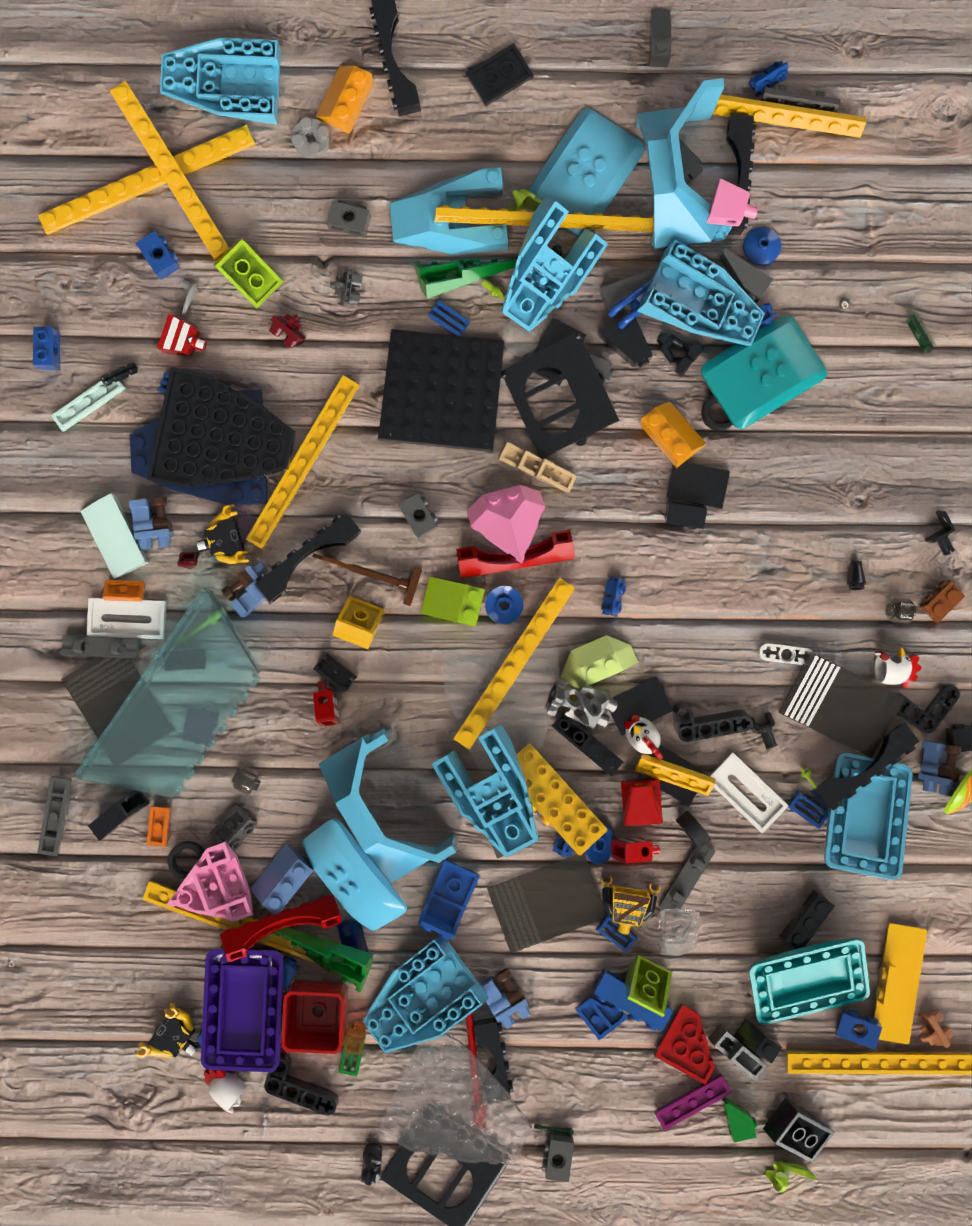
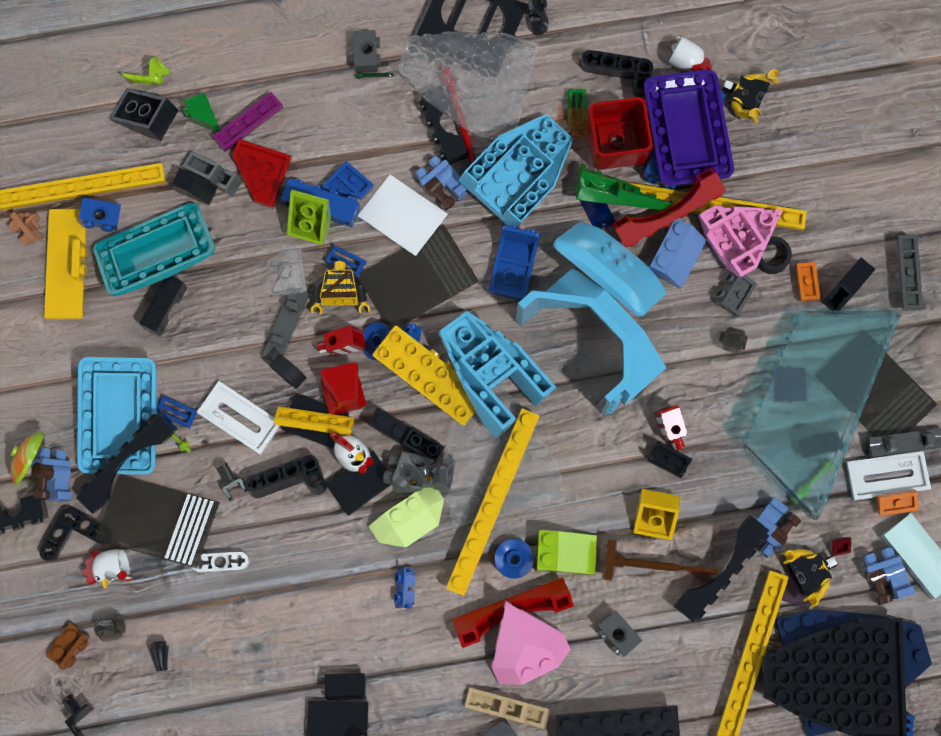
camera: 170 degrees right, 10 degrees down
(551, 972) = (402, 215): none -> white sticker

